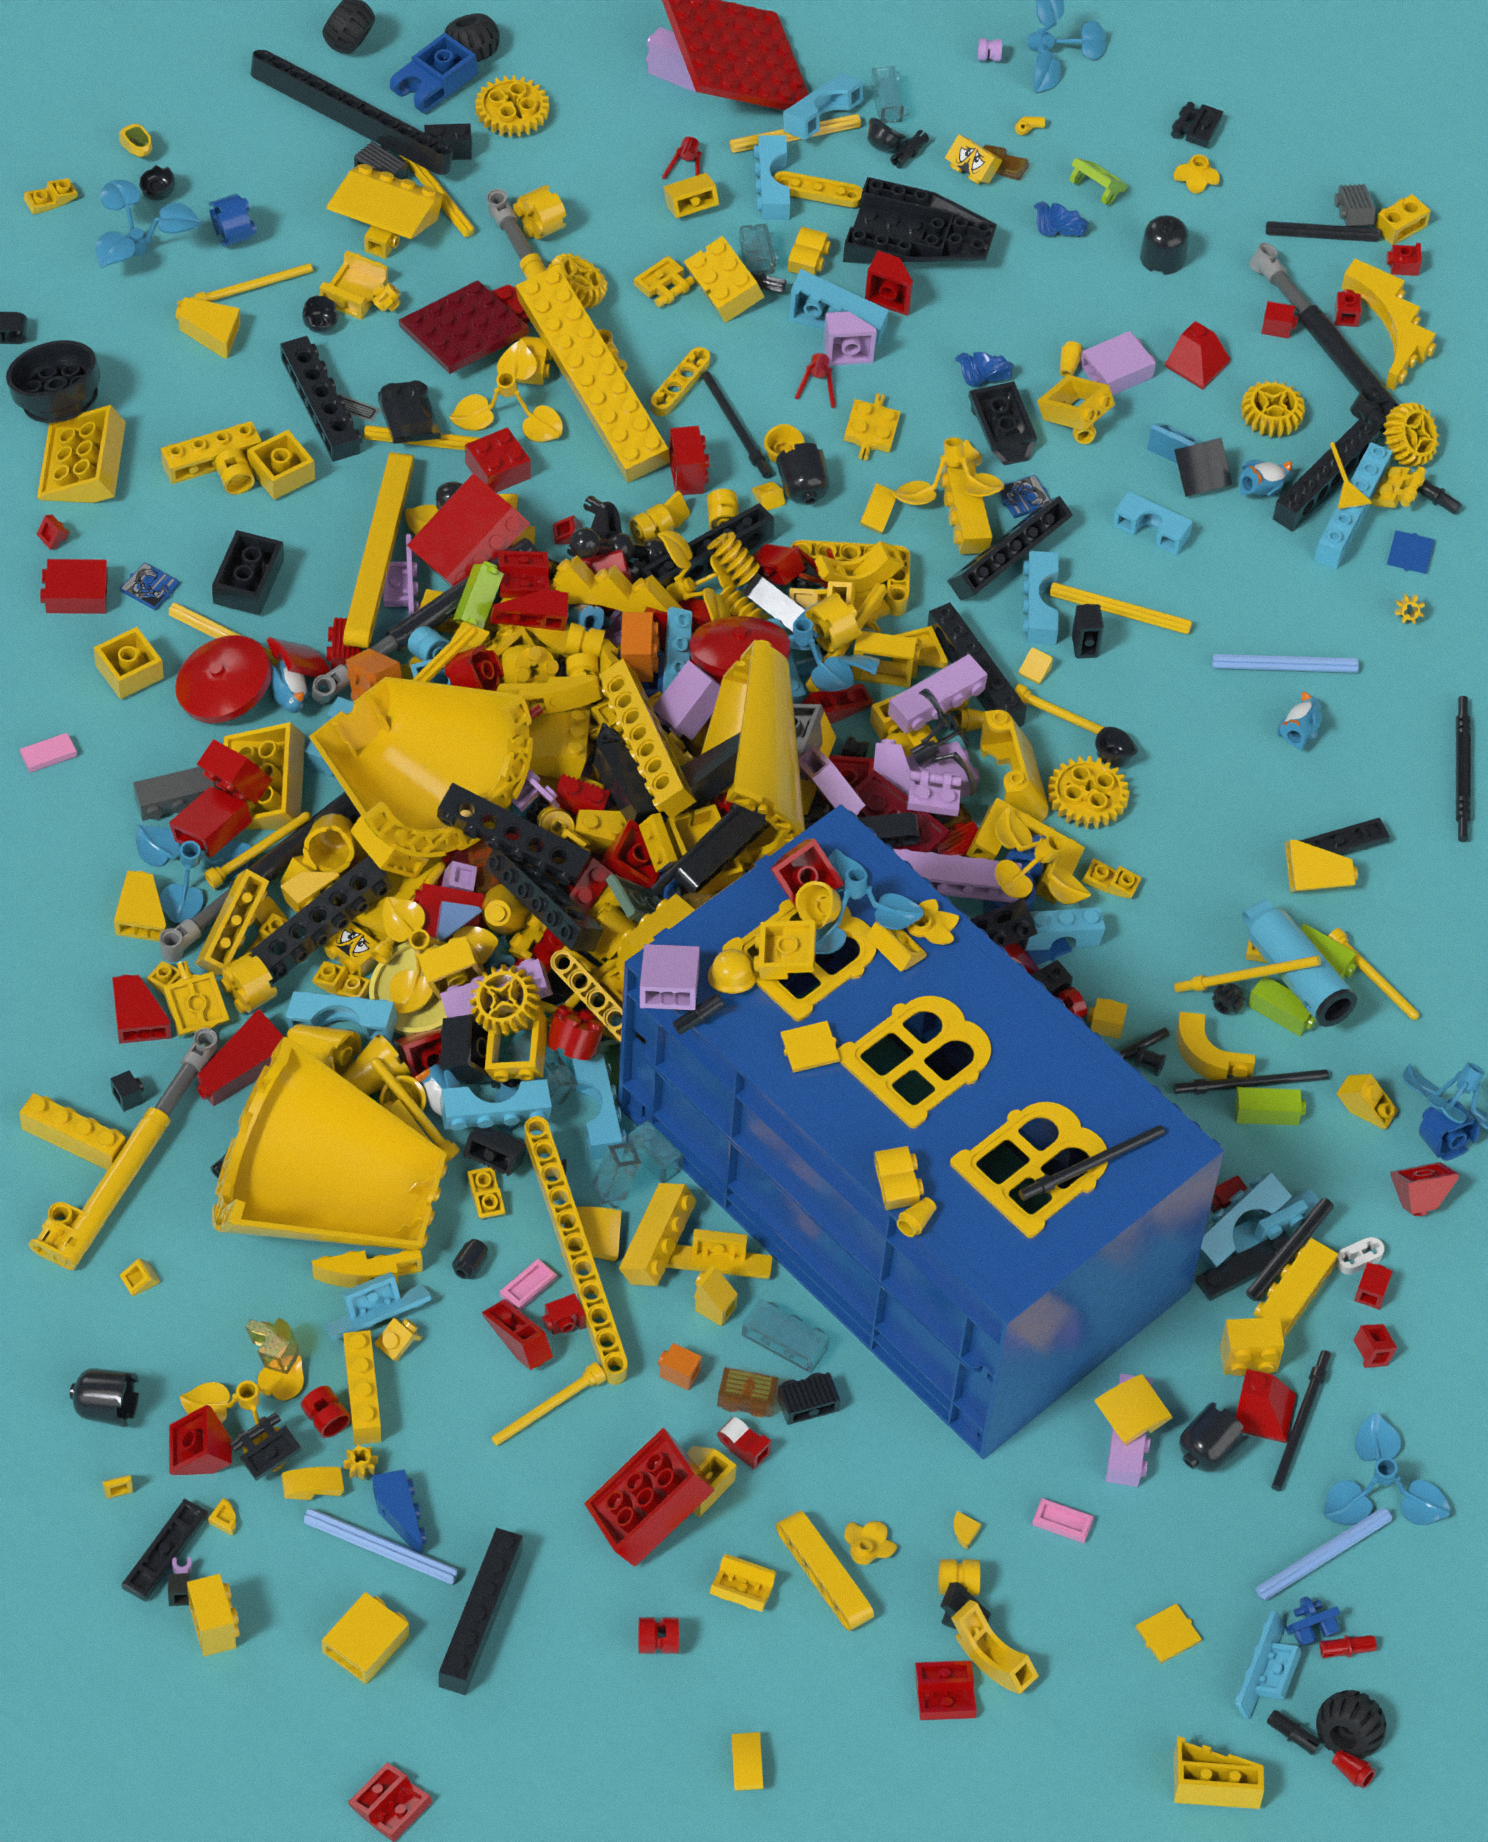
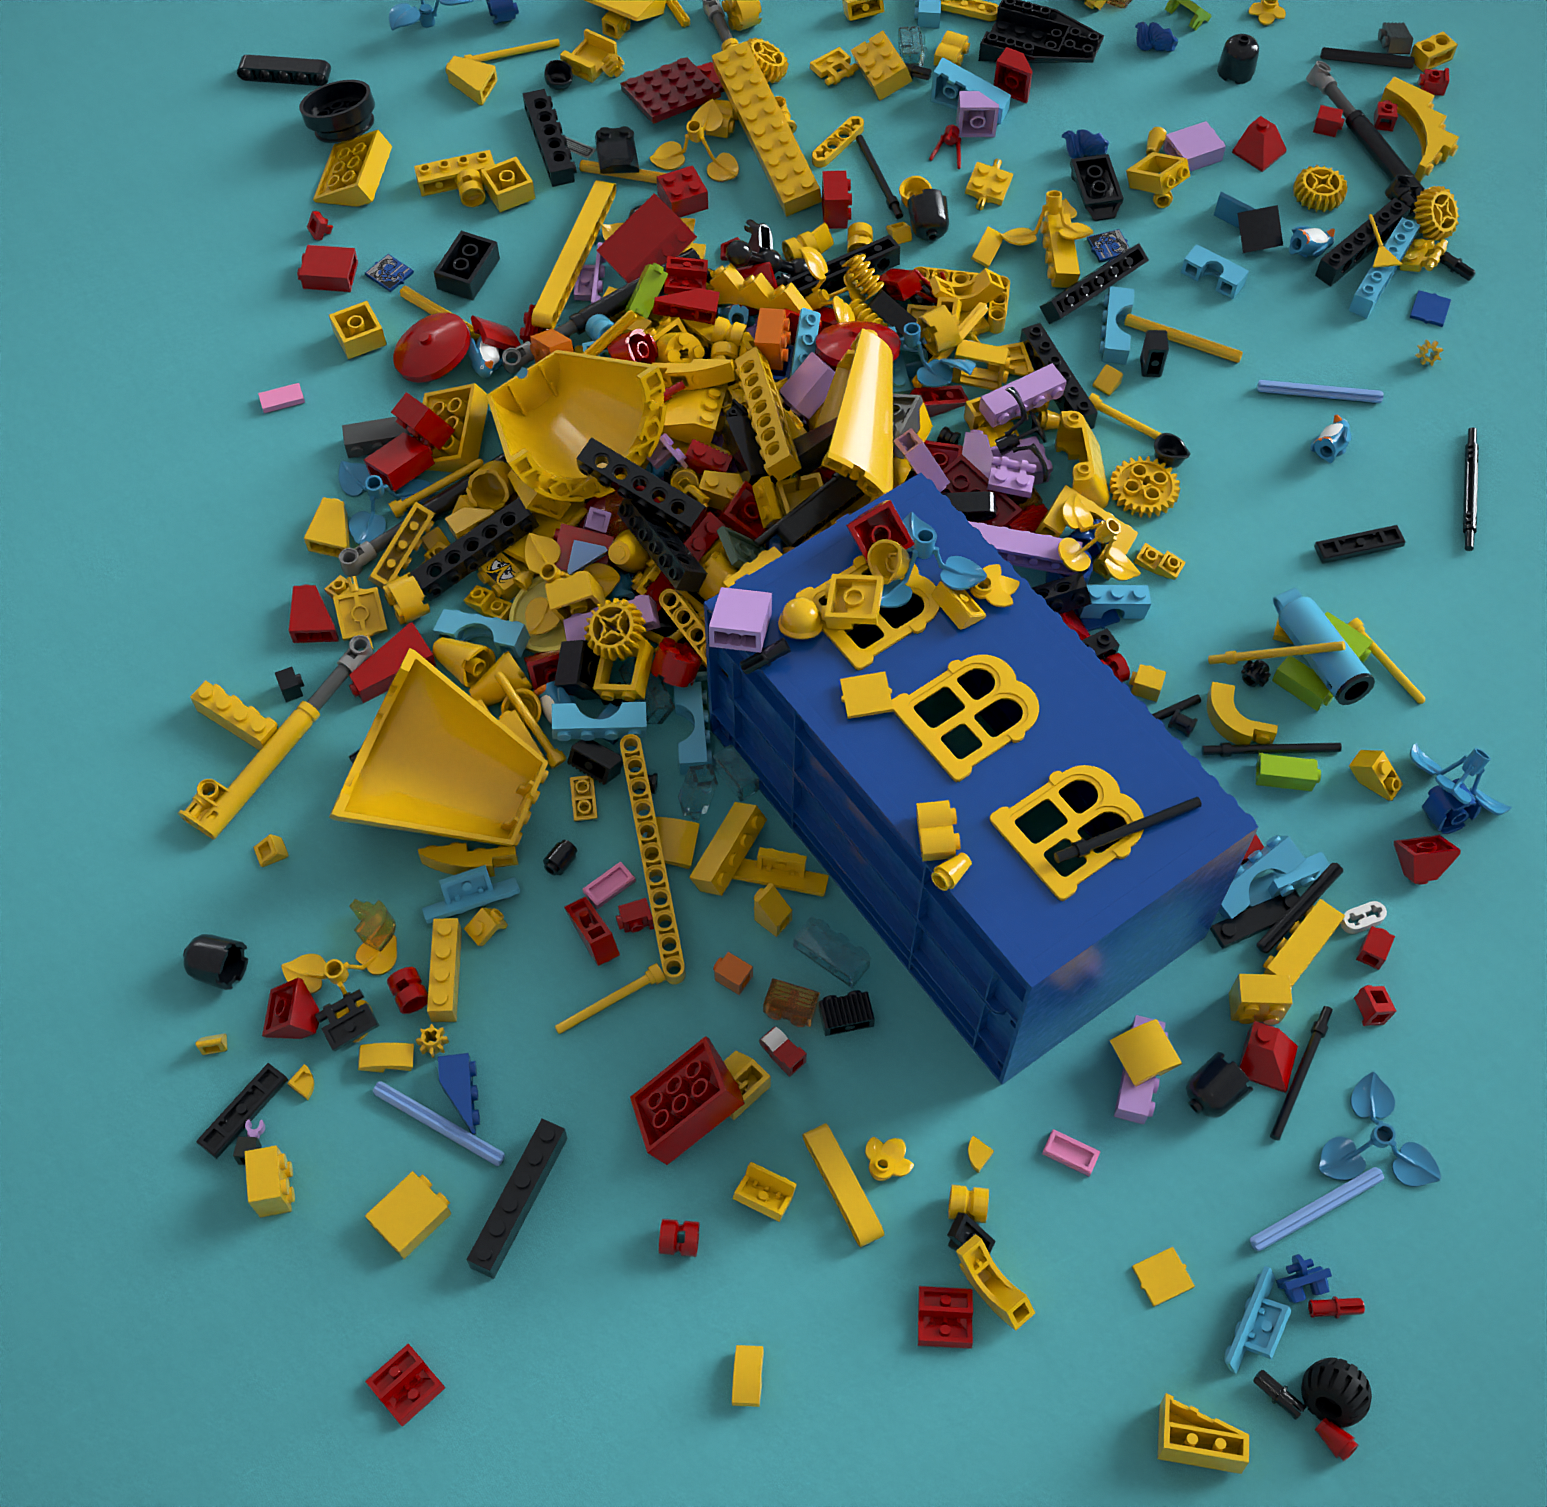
camera: 10 degrees right, 5 degrees up
(1317, 868) = (1340, 564): yellow slope -> none

